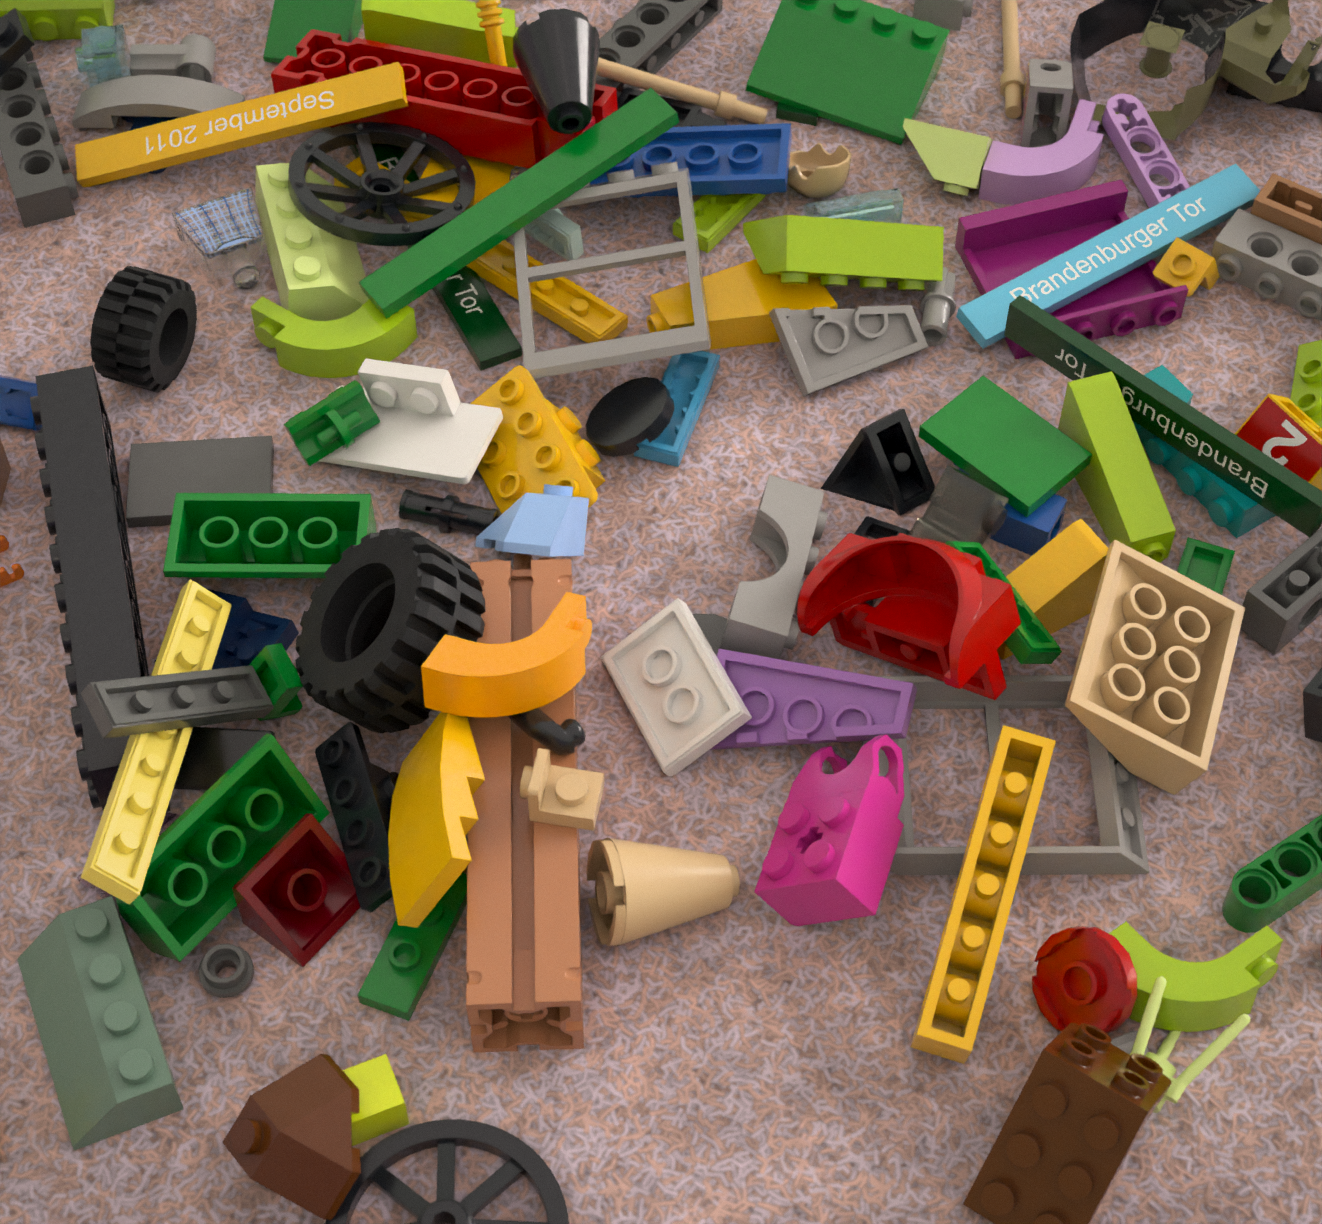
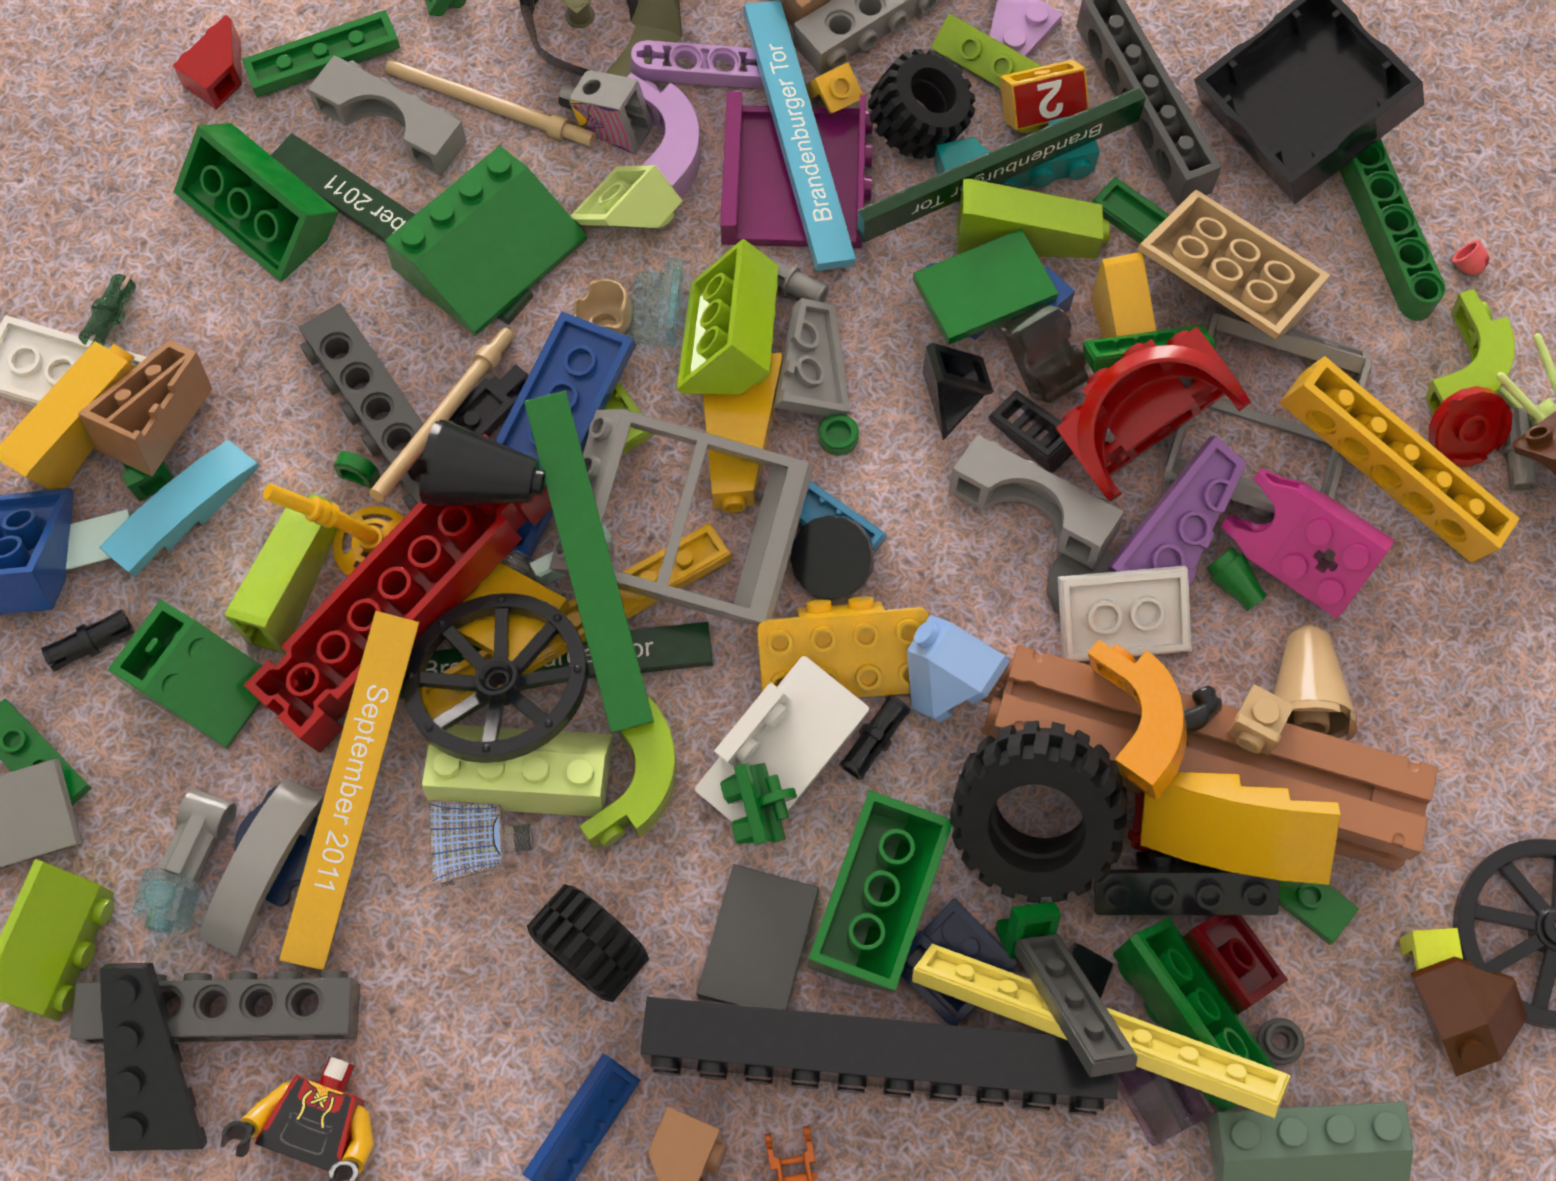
camera: 70 degrees left, 15 degrees up
(769, 792) = (1236, 578): none -> green cone
(780, 395) = (838, 434): none -> green tile
(1229, 314) = (936, 86): none -> black tyre

